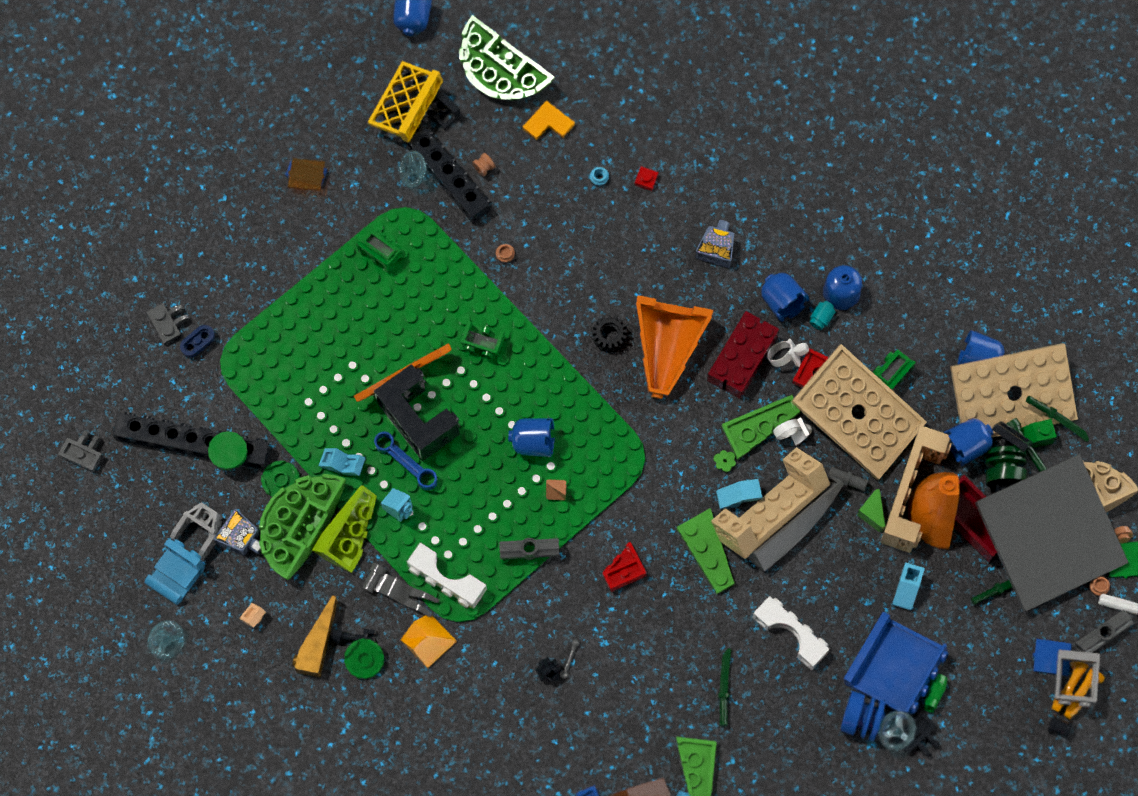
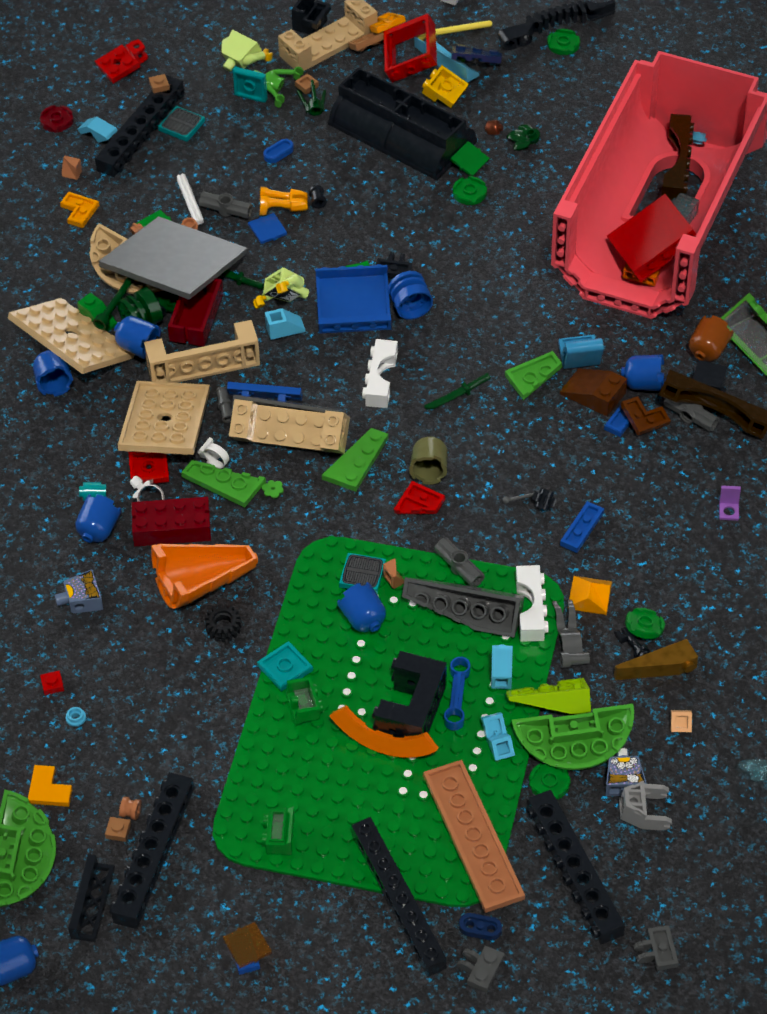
camera: 125 degrees left, 20 degrees down
(175, 571) = (696, 802): dark azure piece -> none
(227, 450) = (563, 820): green tile -> none
(260, 295) = (399, 897): none -> black brick
(271, 383) = (474, 836): none -> nougat plate
(415, 169) = (167, 857): clear light blue piece -> none
(420, 103) = (113, 878): yellow fence -> none
(471, 535) = (473, 606): none -> dark grey wedge
(474, 148) = (118, 829): none -> medium nougat plate
(498, 682) = (582, 527): none -> blue plate
(505, 253) = (205, 742): nougat plate -> none
(530, 351) = (284, 665): none -> teal tile
(578, 469) = (362, 570): none -> tile
(658, 602) = (429, 460): none -> olive cylinder
(739, 492) = (299, 463): medium azure slope -> none
(840, 517) = (265, 391): none -> blue hinge
(841, 292) = (58, 486): blue cylinder -> none
(872, 511) = (238, 373): bright green slope -> none
(888, 726) = (397, 268): clear light blue piece -> none
(894, 369) = (107, 420): green window -> none
(934, 507) = (202, 319): orange cone -> none
(949, 608) = (282, 286): none -> torso
(1012, 436) = (113, 309): black tile -> none
(1053, 414) = (71, 303): dark green sword -> none
(1075, 656) = (260, 184): light grey window -> none

